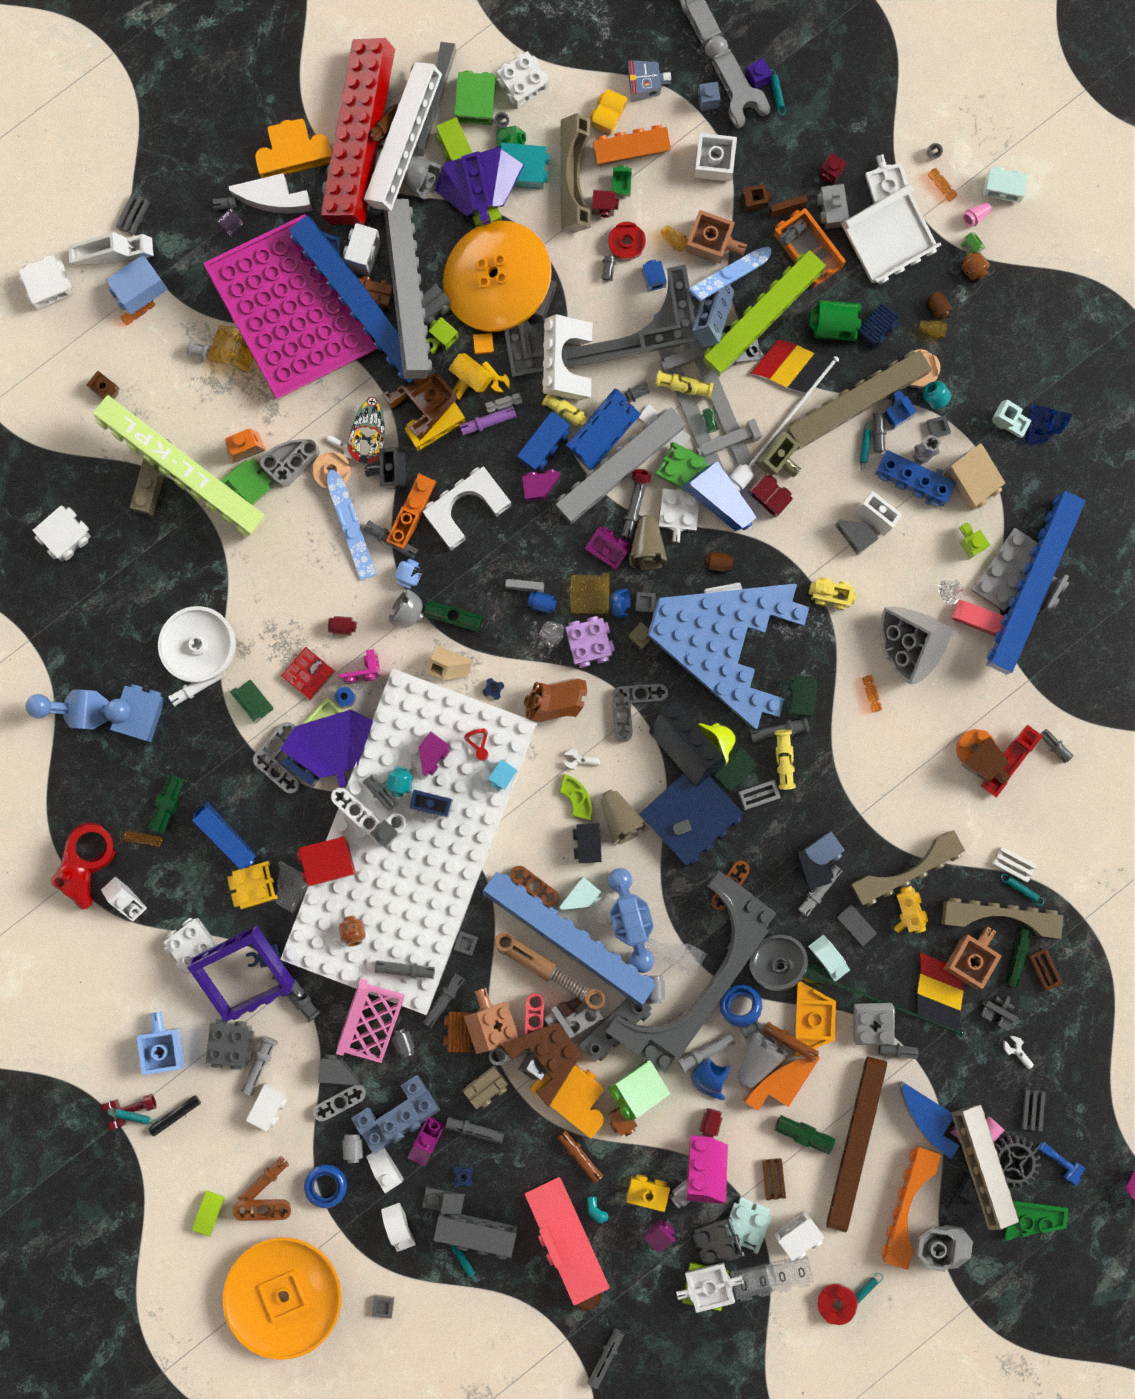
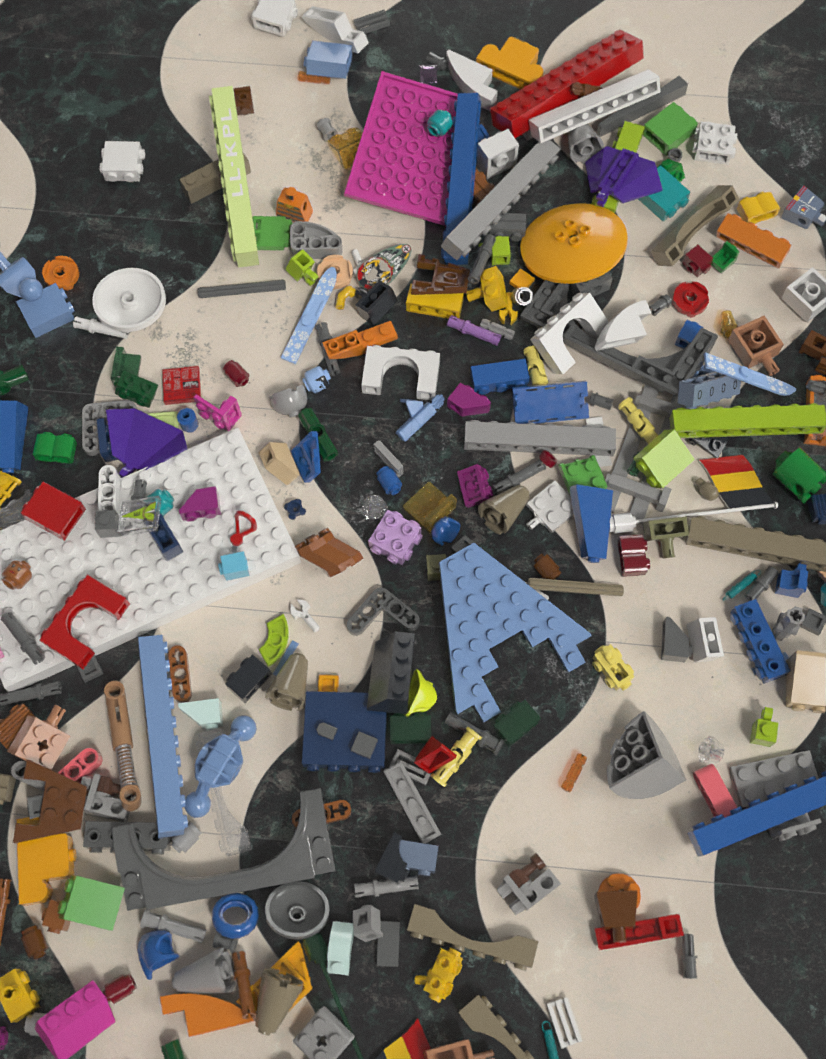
camera: 45 degrees right, 15 degrees down
(104, 670) = (70, 275): none -> orange plate
(266, 812) = (55, 448): none -> green brick
(272, 552) = (244, 288): none -> dark grey axle
(280, 711) = (135, 389): none -> dark green brick
(296, 268) = (439, 123): none -> teal head
(303, 492) = (300, 267): none -> lime brick
(357, 482) = (342, 295): none -> yellow arm
(401, 806) = (139, 516): none -> clear tile
(432, 944) = (88, 594): none -> red arch
(438, 351) = (484, 253): none -> dark grey pin
(465, 641) = (307, 457): none -> blue wing
(499, 359) = (527, 296): none -> light grey brick
(512, 528) = (419, 415): none -> medium blue piece
(596, 802) = (293, 645): none -> medium blue piece
(602, 316) = (625, 327): none -> white slope
(624, 1151) = (34, 942): none -> reddish brown brick
(646, 793) = (328, 683): none -> light orange tile
(717, 812) = (364, 745): none -> dark grey tile
(728, 400) = (663, 459): none -> lime brick
(752, 558) = (576, 587): none -> dark tan axle
(771, 772) = (434, 756): none -> red slope
(778, 392) = (707, 489): none -> dark tan cylinder
(783, 818) = (412, 802): none -> light grey tile
(822, 1029) = (275, 999): none -> dark tan cone
(826, 928) = (367, 923): none -> light grey brick
(913, 804) = (523, 888): none -> light grey hips

